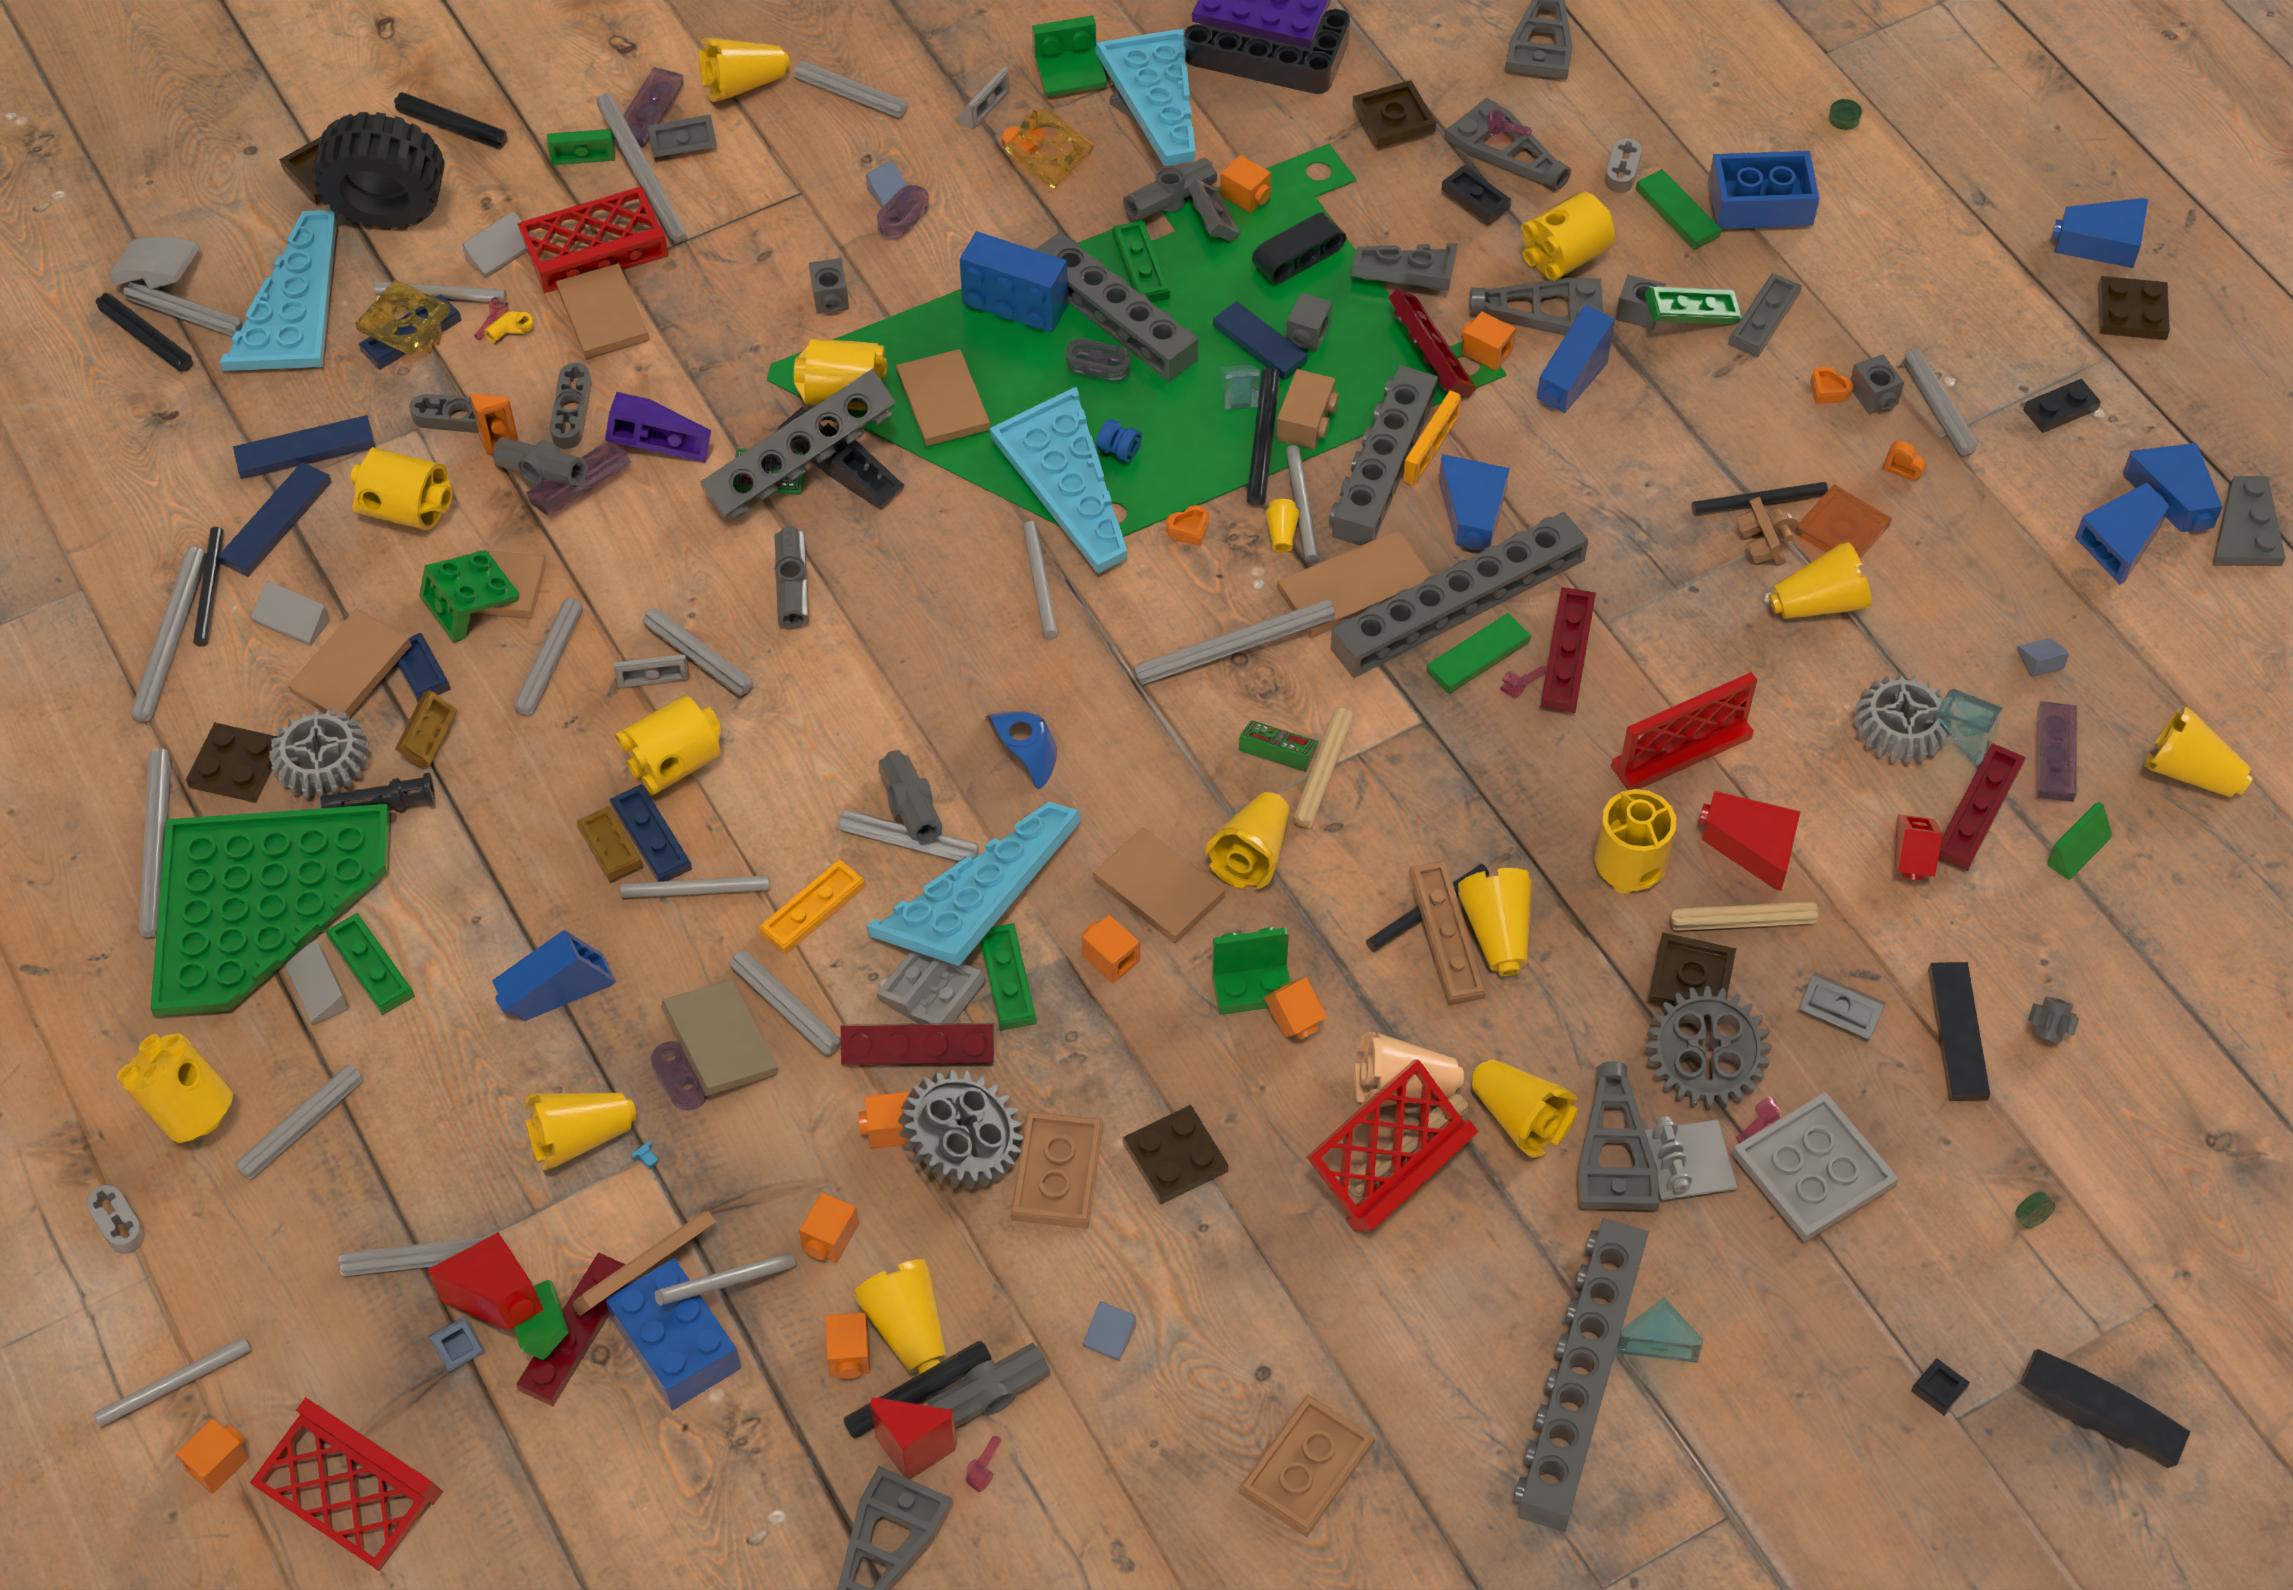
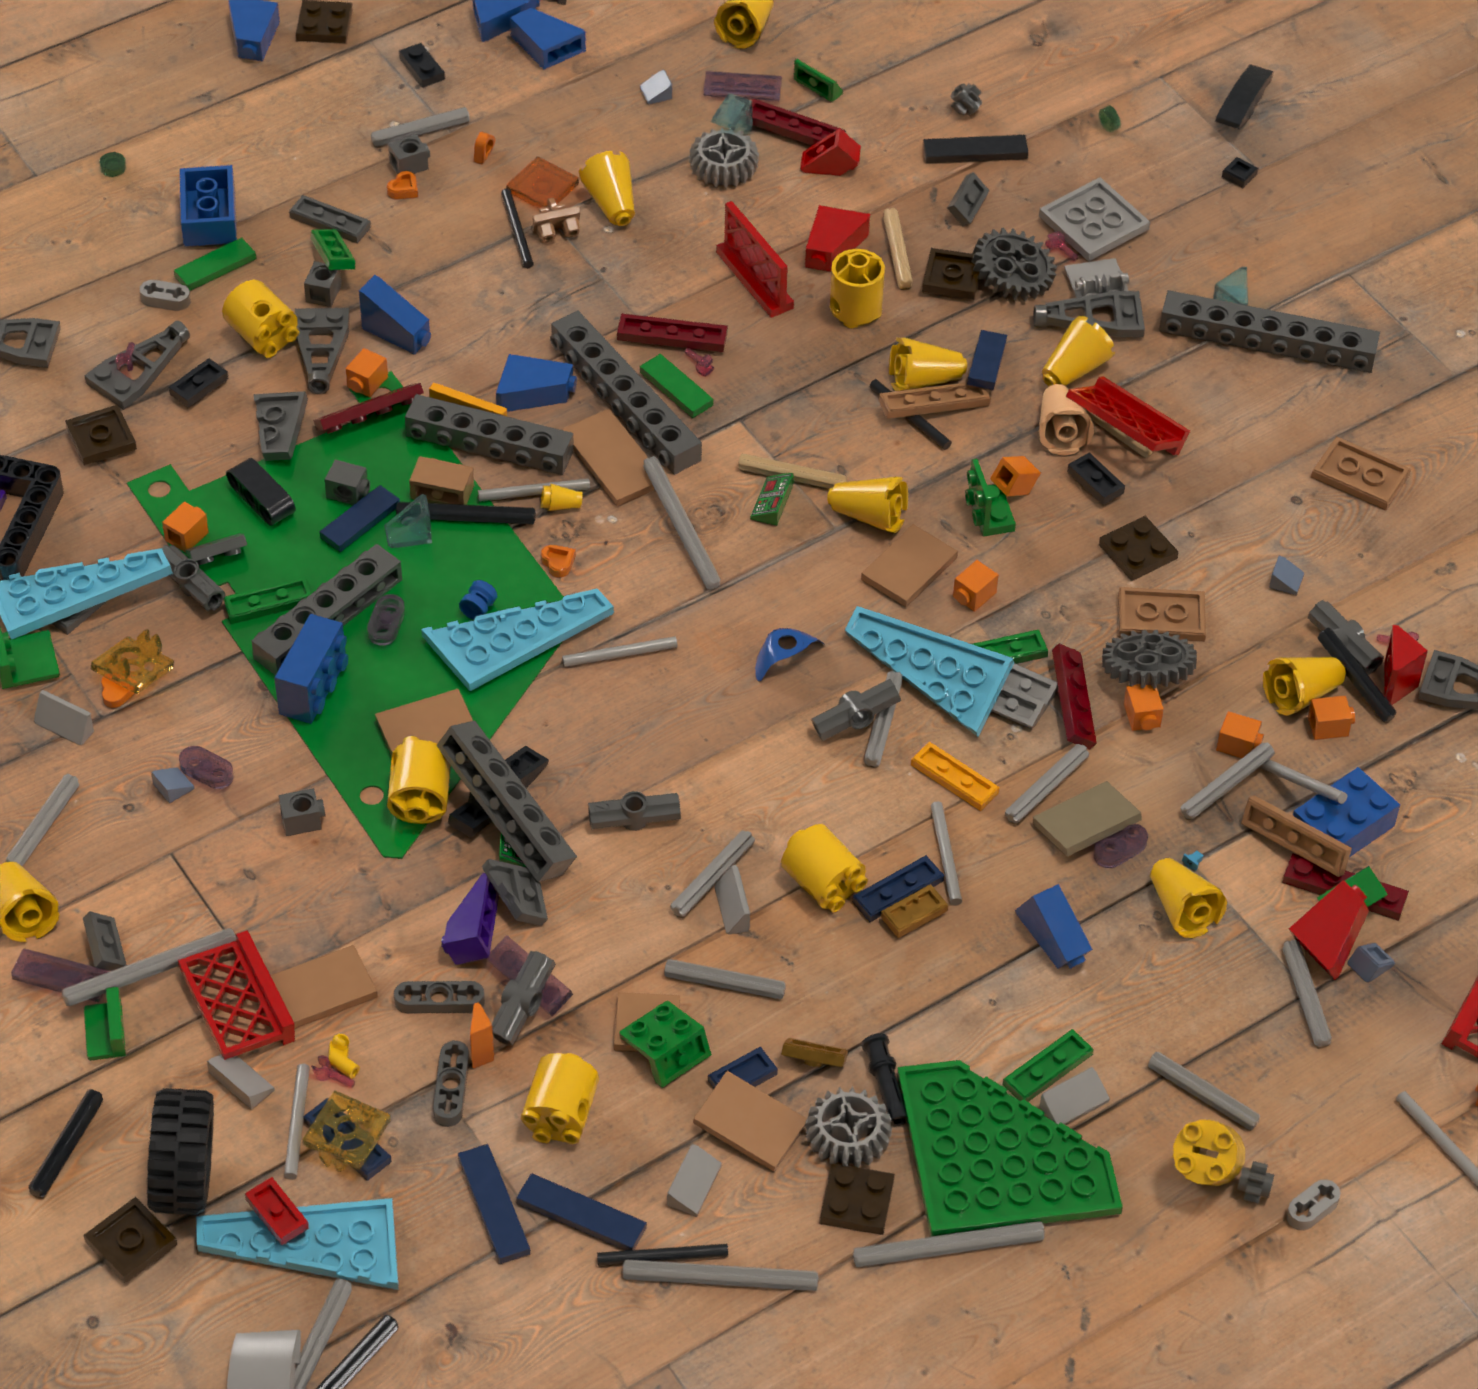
camera: 95 degrees left, 5 degrees down
(150, 1152) = (1255, 1182): none -> dark grey gear
(315, 261) = (276, 1211): none -> red plate
(687, 465) = (518, 891): none -> dark grey wing
(757, 1204) = (1227, 780): none -> light grey axle
(1298, 1112) = (1096, 478): none -> black plate
(1522, 1000) = (987, 360): none -> dark blue tile

